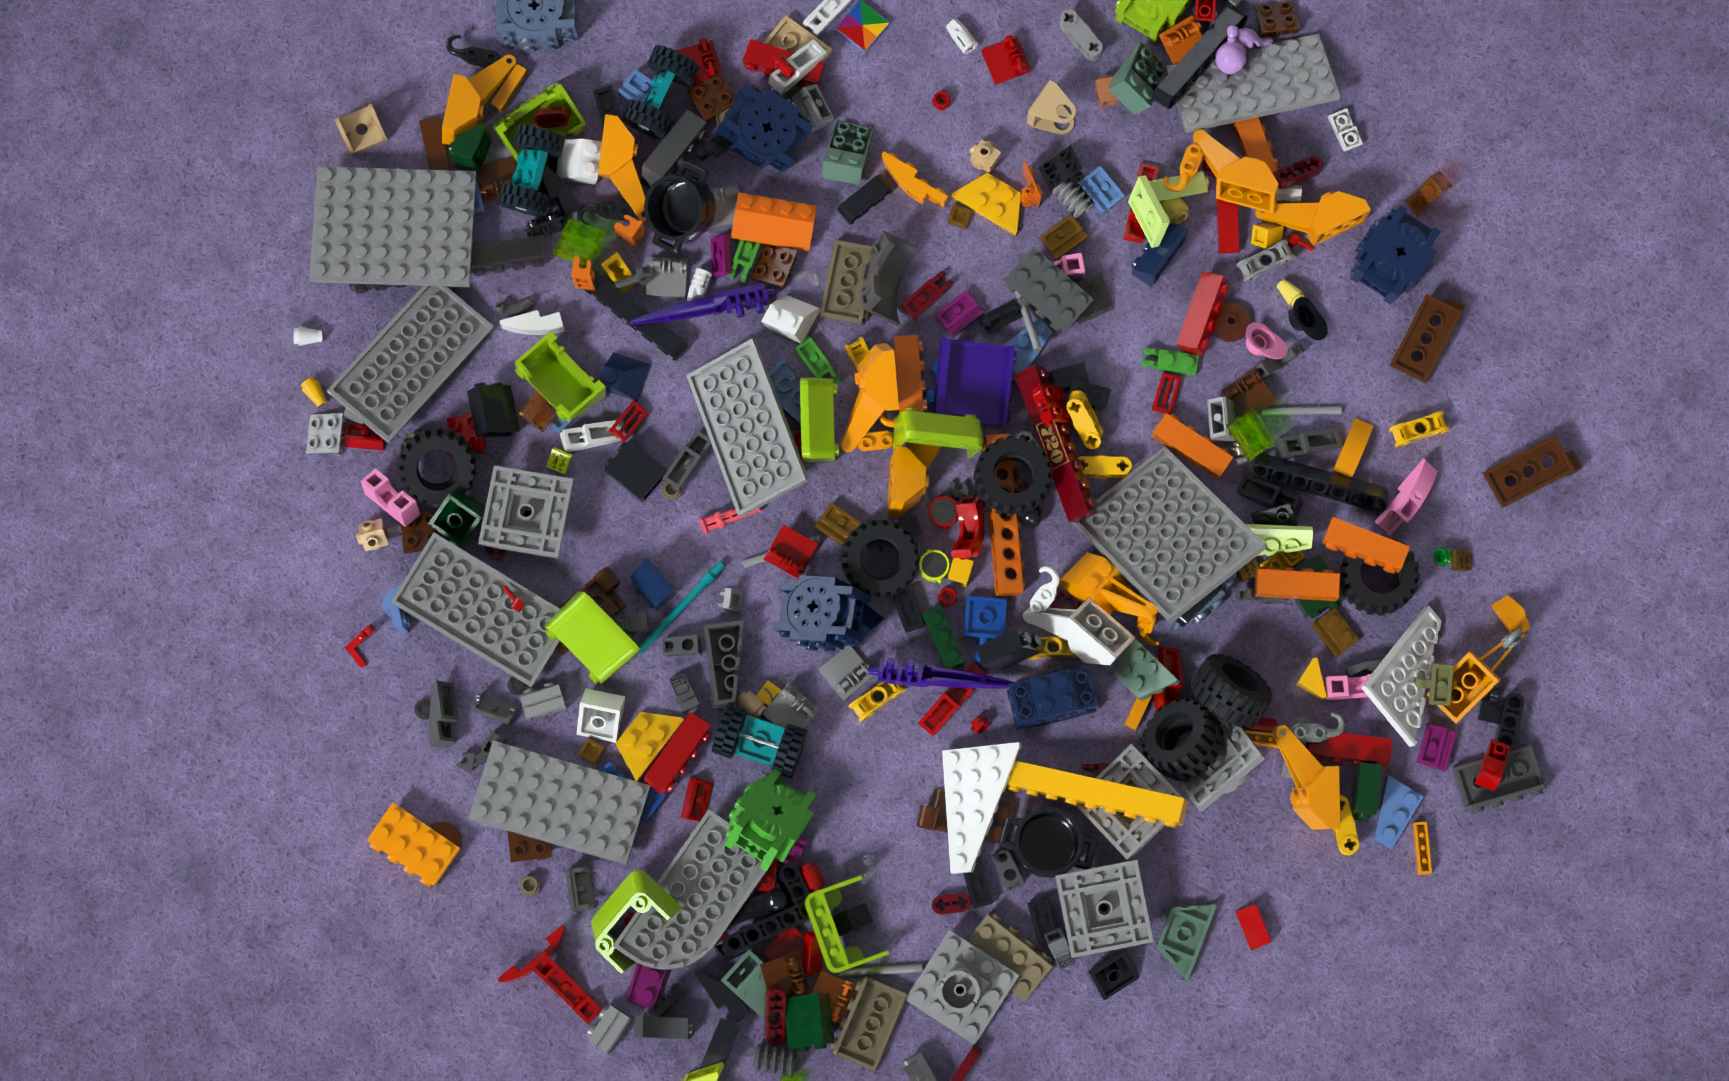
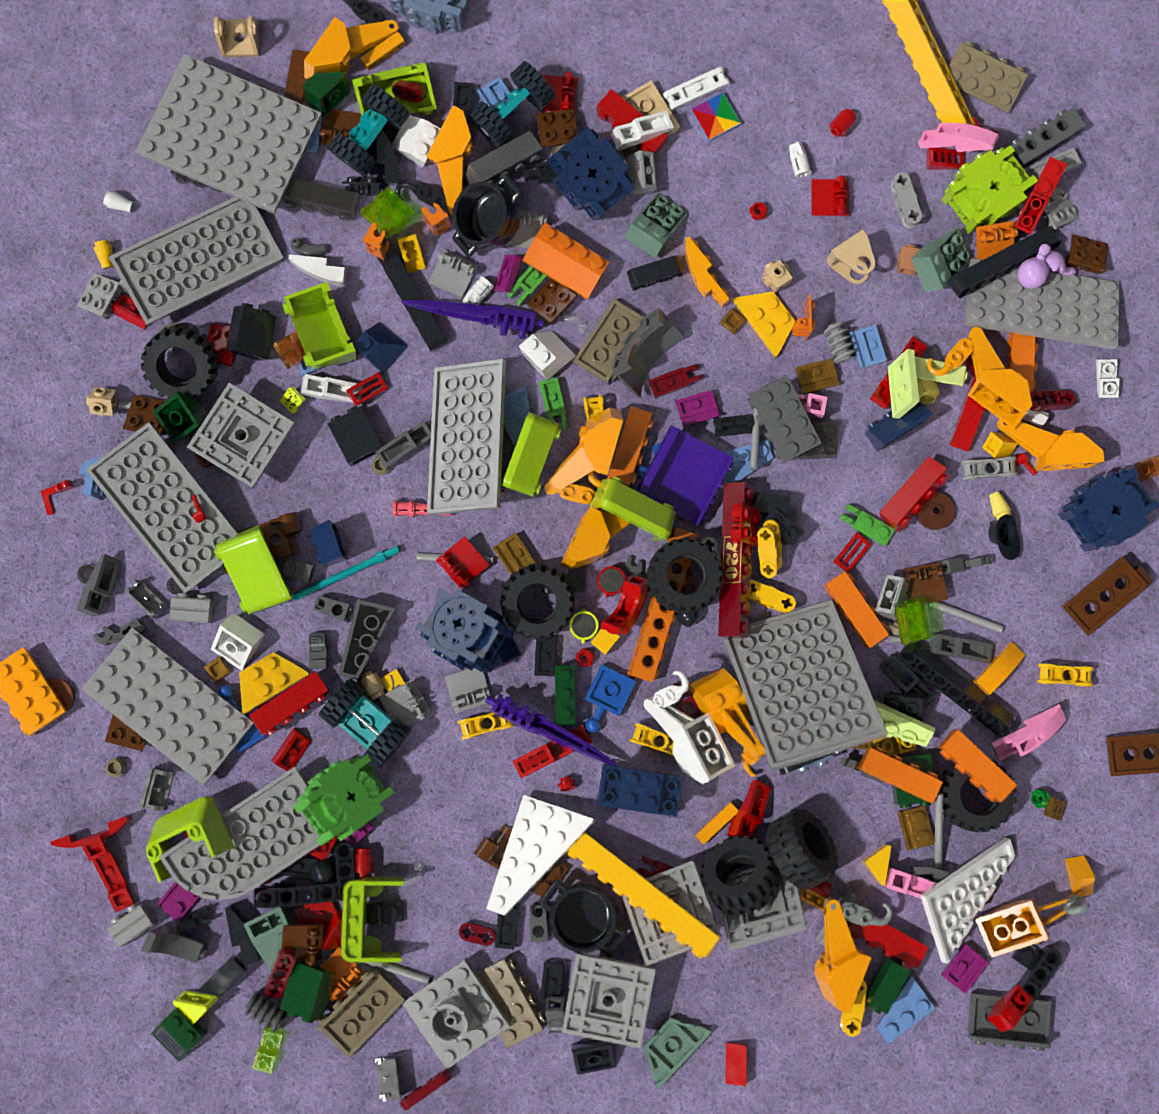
camera: 15 degrees right, 5 degrees up
(398, 505) = (129, 375): bright pink arch -> none
(643, 276) = (431, 264): dark grey bar -> none
(732, 600) = (393, 584): light grey tile -> none
(783, 65) = (630, 124): red pin -> none
(1009, 649) = (619, 730): black brick -> none
(1061, 168) = (840, 313): black hinge -> none
(1142, 671) = (730, 797): sand green wing -> none
(1264, 342) = (958, 541): bright pink piece -> none
(1356, 623) = (938, 830): none -> light grey bar
(1422, 848) = (915, 1054): light orange piece -> none
(1439, 684) = (991, 918): olive plate -> none

